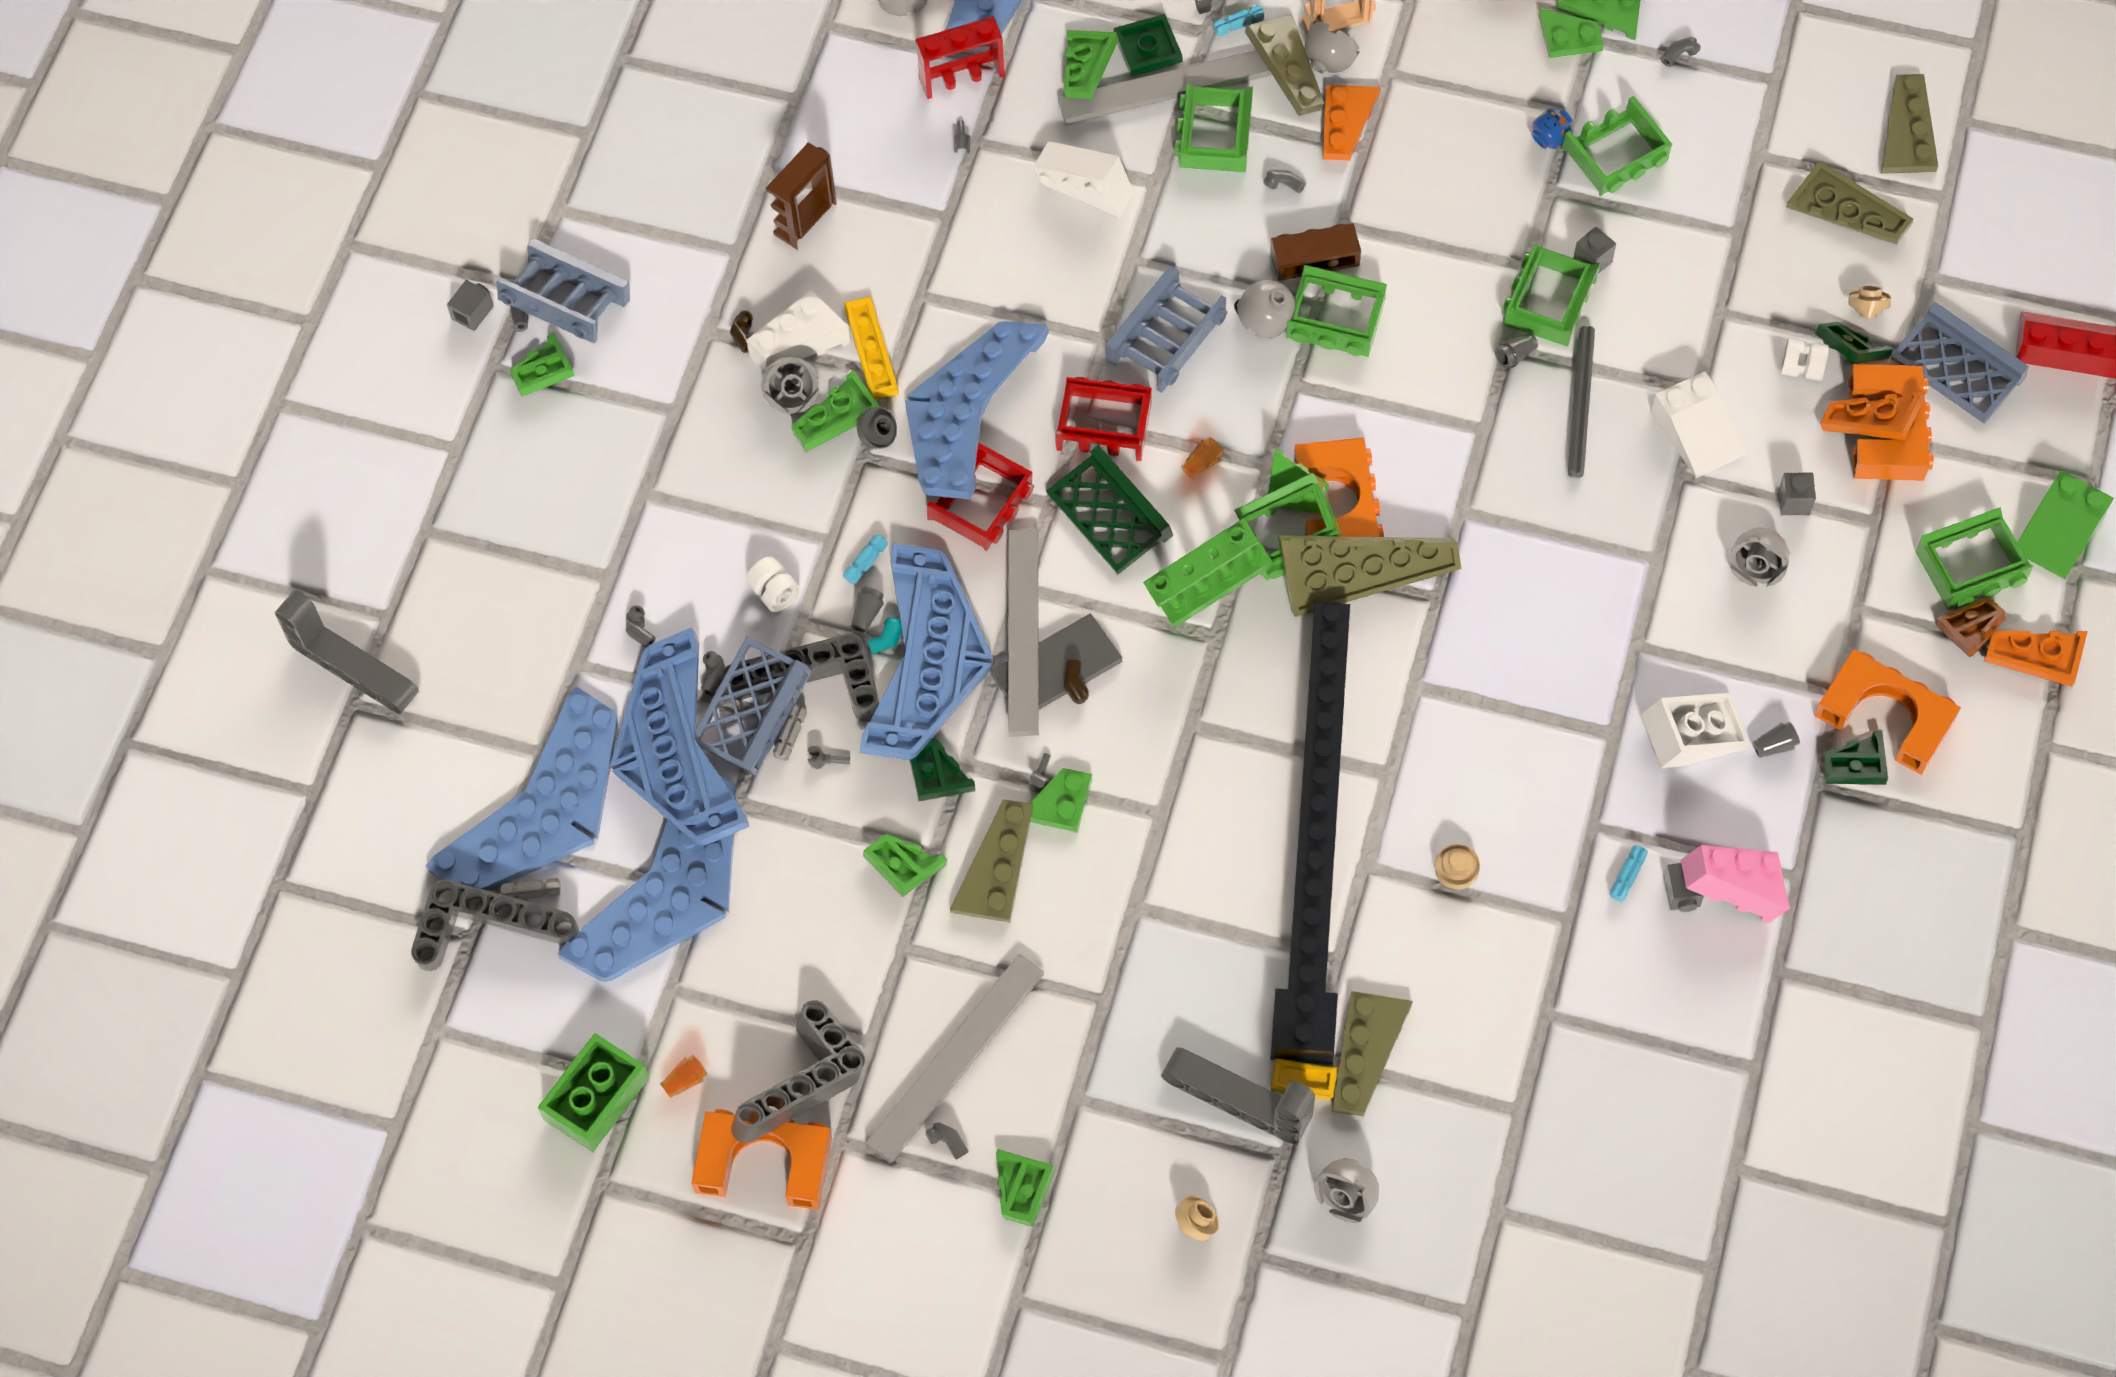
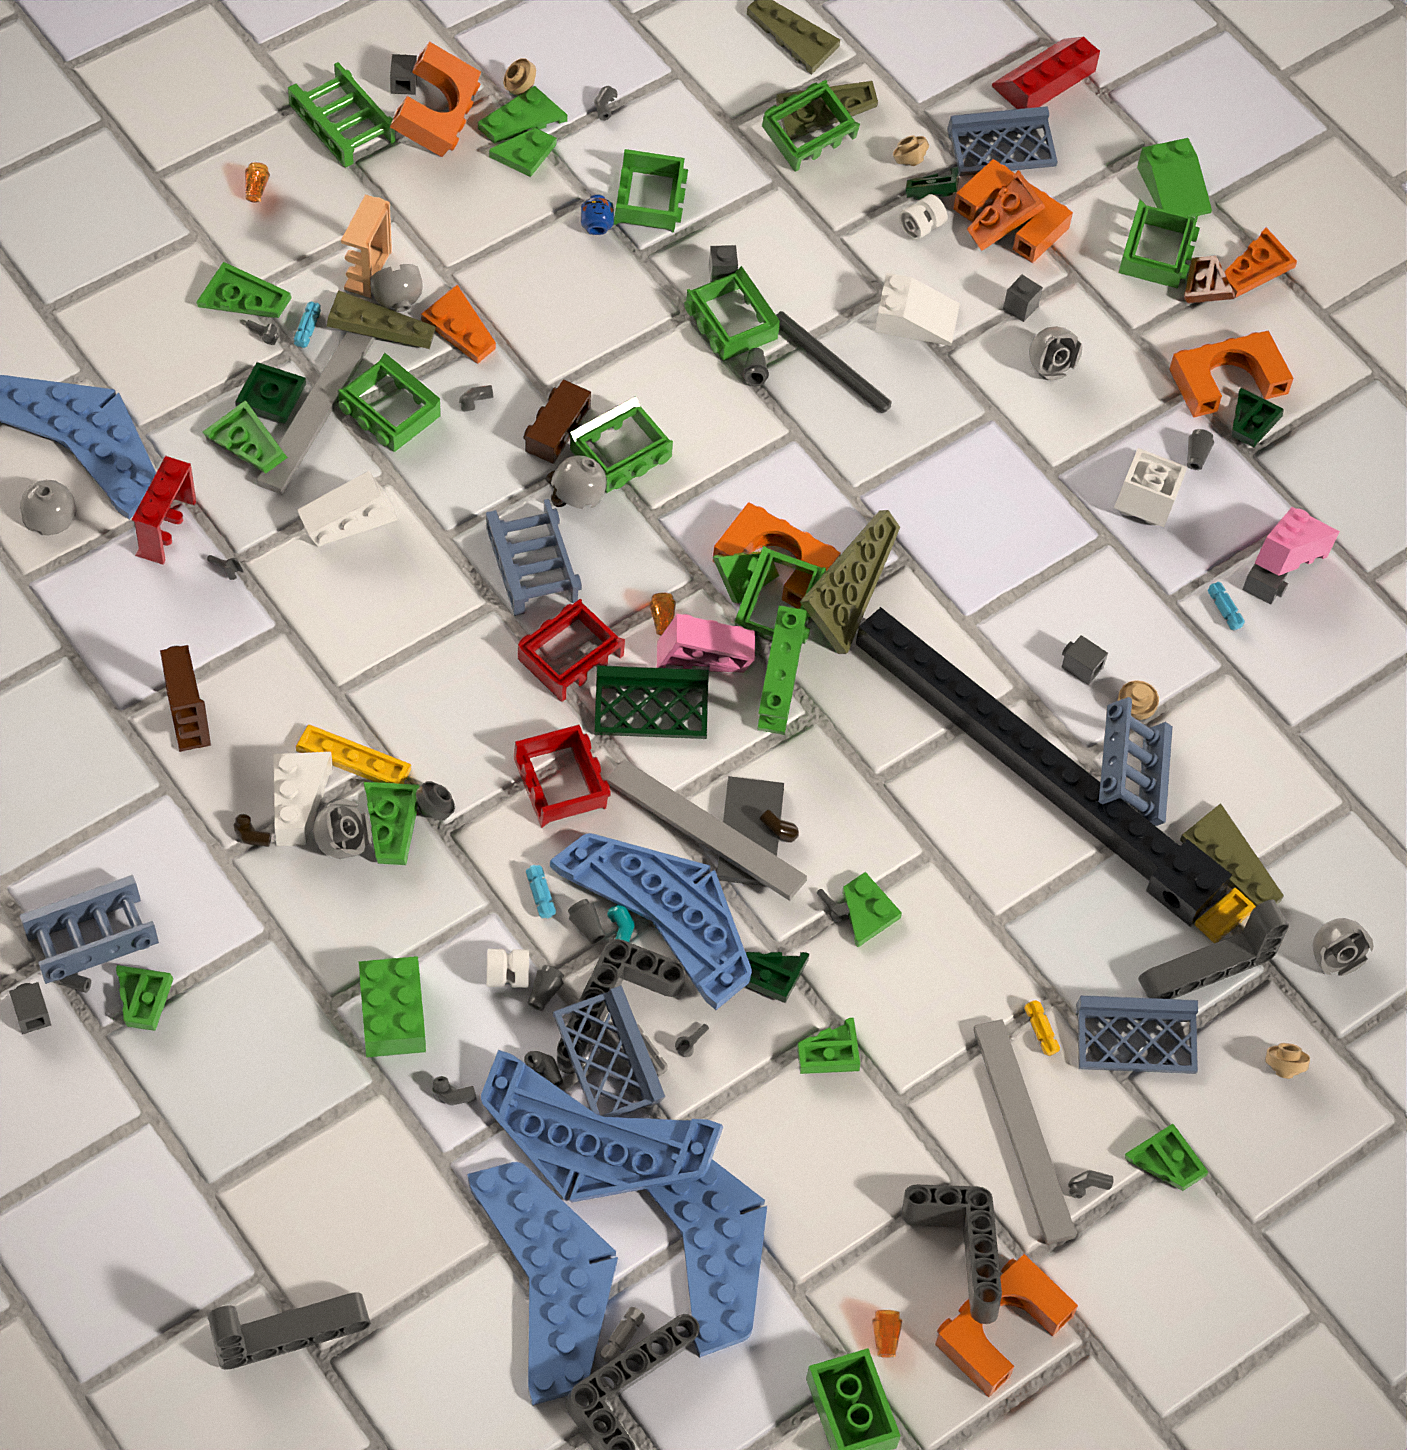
camera: 60 degrees left, 5 degrees down
(671, 531) = (392, 1006): none -> bright green brick
(782, 622) = (545, 986): none -> dark grey cone
(949, 406) = (468, 741): medium blue wing -> none
(995, 871) = (896, 997): olive wing -> none
(1063, 1007) = (1042, 1028): none -> yellow axle
(1143, 1070) = (1137, 1009): none -> sand blue fence
(1194, 503) = (705, 644): none -> bright pink wedge
(1401, 919) = (1154, 765): none -> sand blue fence
(1457, 797) = (1083, 659): none -> dark grey brick
(1815, 178) = (814, 147): none -> bright green window

